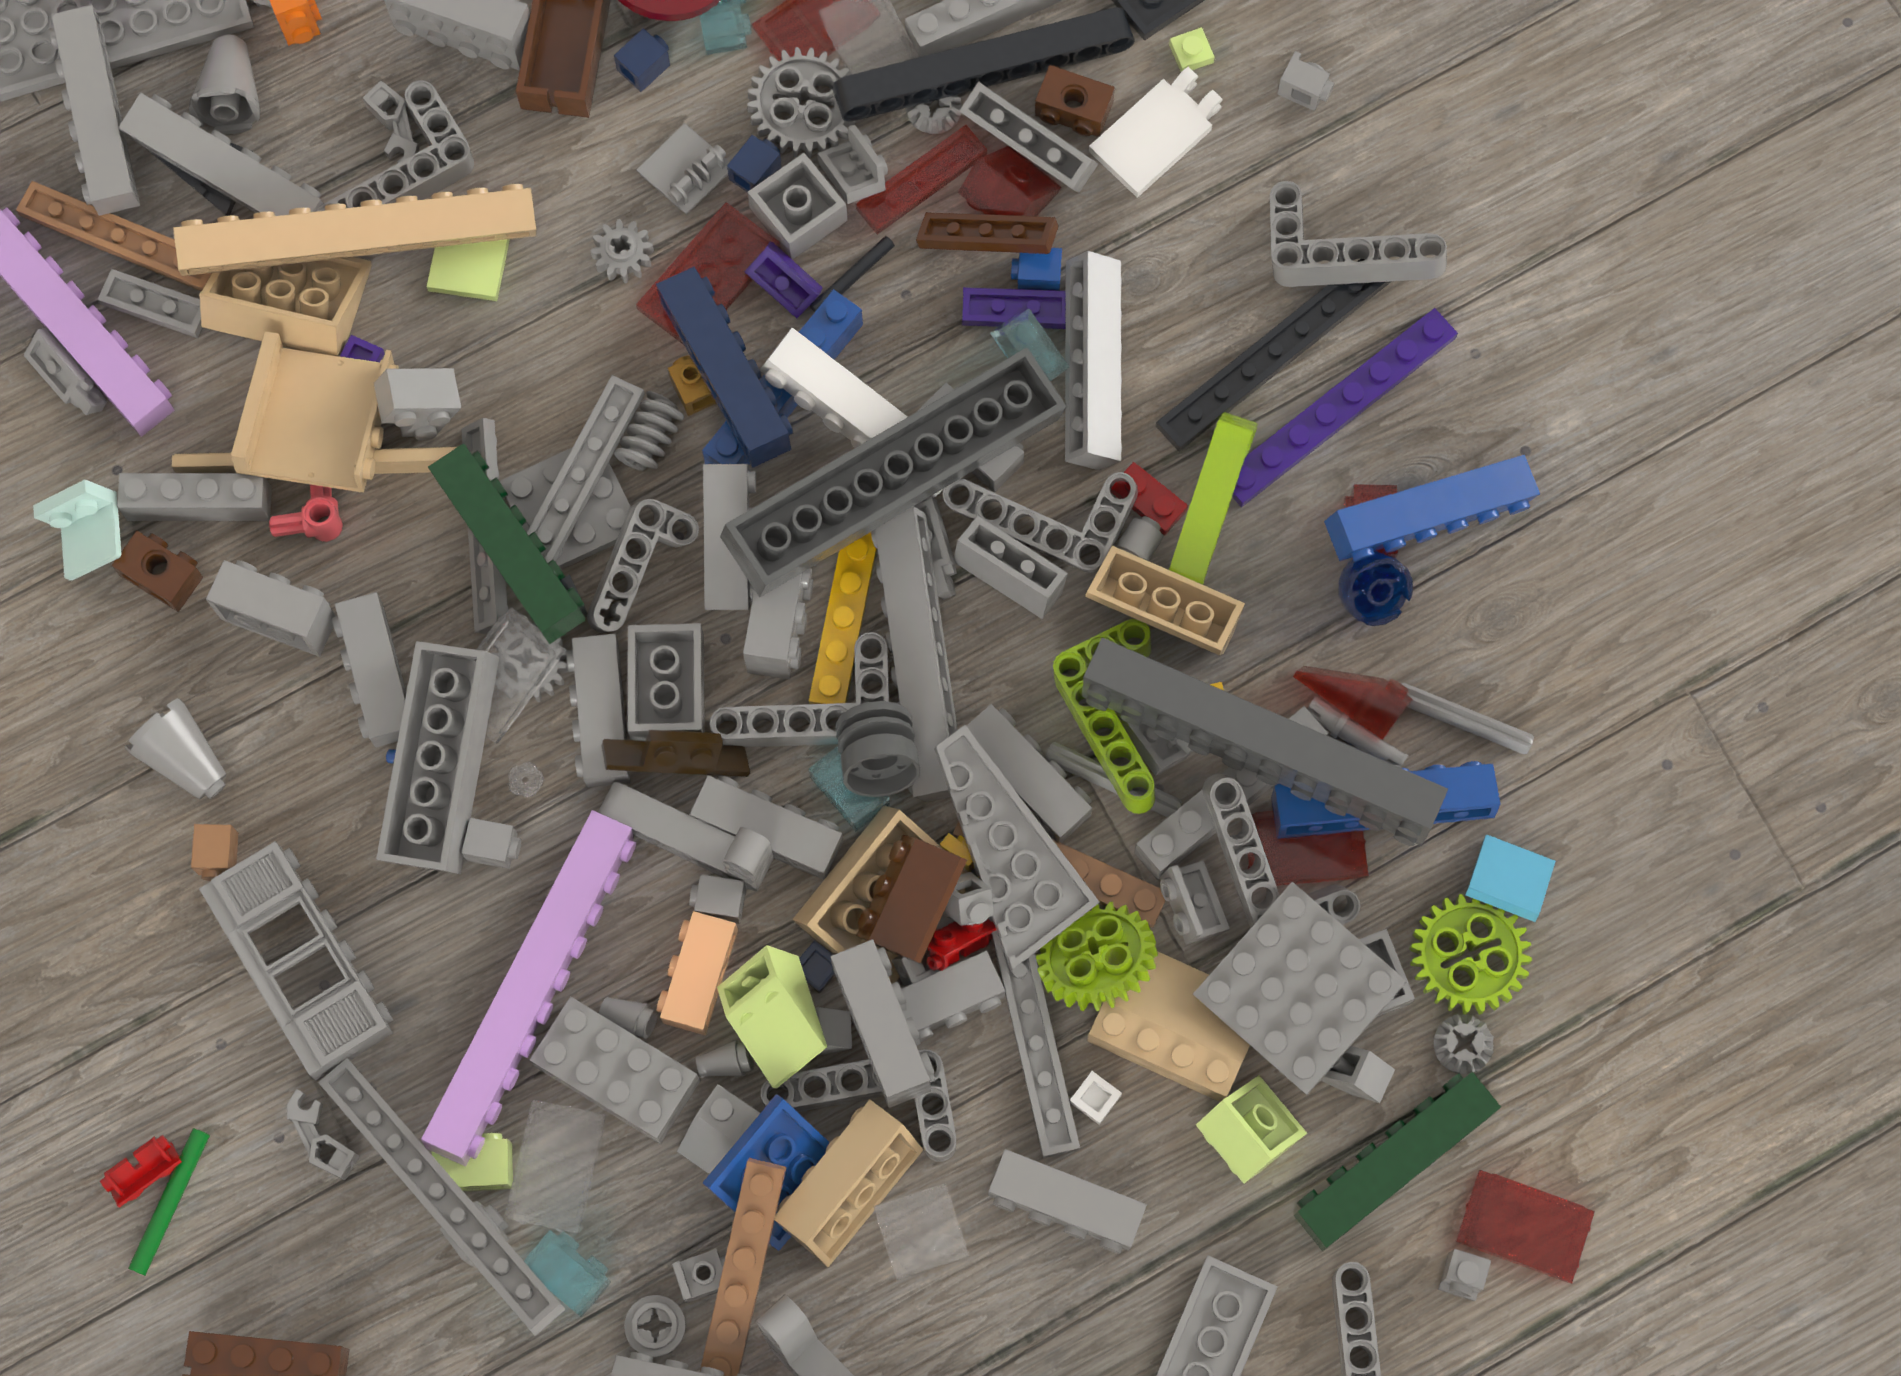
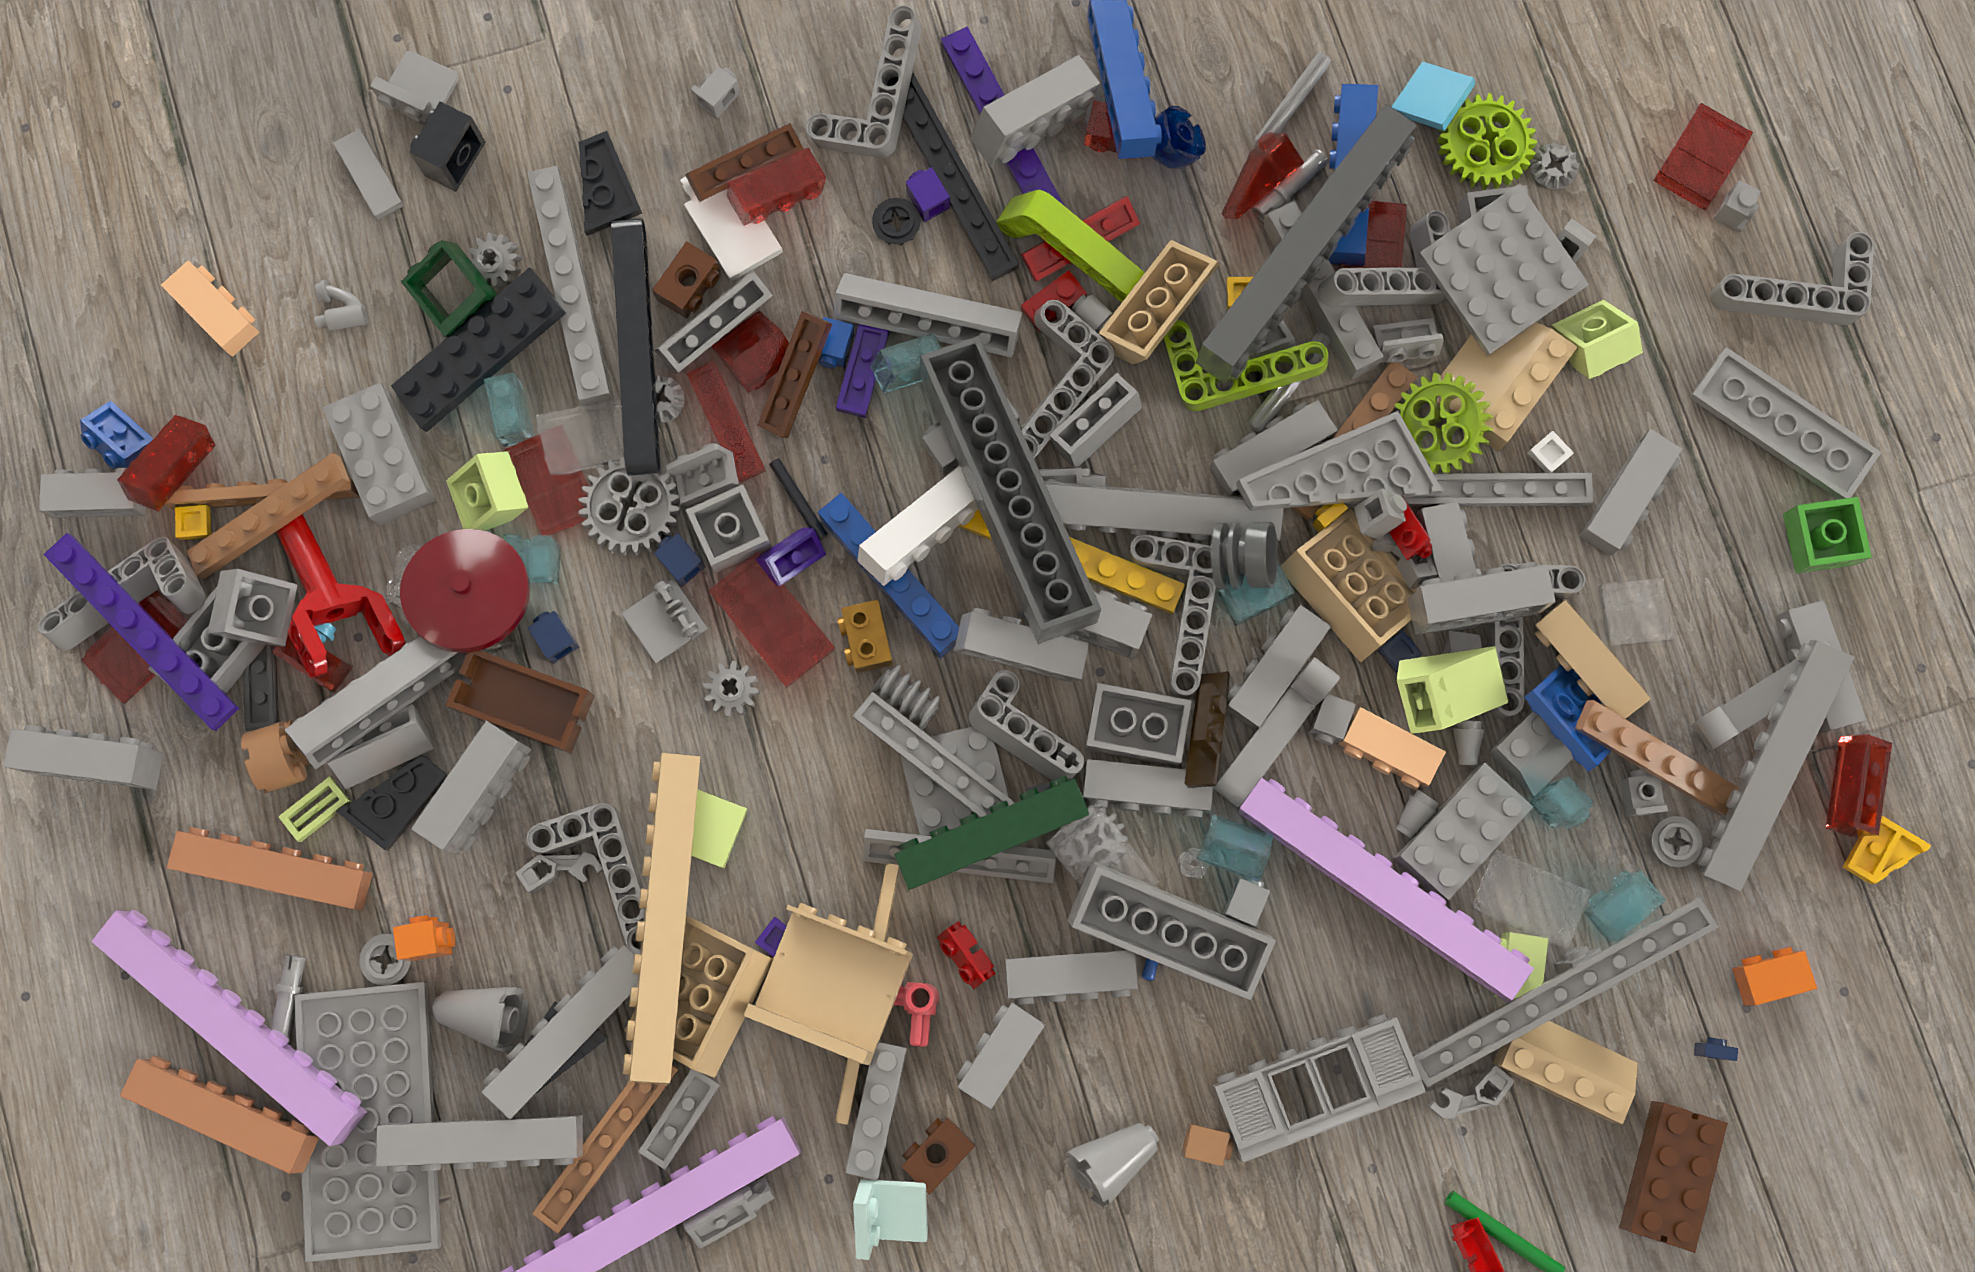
camera: 80 degrees left, 5 degrees up
(367, 1242) = (1572, 1070): none -> tan slope
(368, 566) = (955, 944): none -> red hinge
(418, 400) = (841, 887): light grey brick -> none
(547, 816) = (1235, 848): none -> clear light blue brick
(667, 1173) = (1562, 804): none -> clear light blue brick
(725, 367) = (872, 615): dark blue brick -> none
(910, 898) = (1376, 554): reddish brown slope -> none
(1191, 50) = (661, 177): yellowish green plate -> none
(1203, 167) = (776, 187): none -> clear red brick
(1205, 293) = (905, 211): none -> black gear
(1224, 127) = (715, 175): none -> reddish brown plate
(1239, 330) = (927, 194): none -> dark purple brick
(1241, 522) = (1107, 222): none -> red plate
(1359, 418) = (1034, 111): none -> light grey brick
(1397, 1160) = (1641, 235): dark green brick -> none

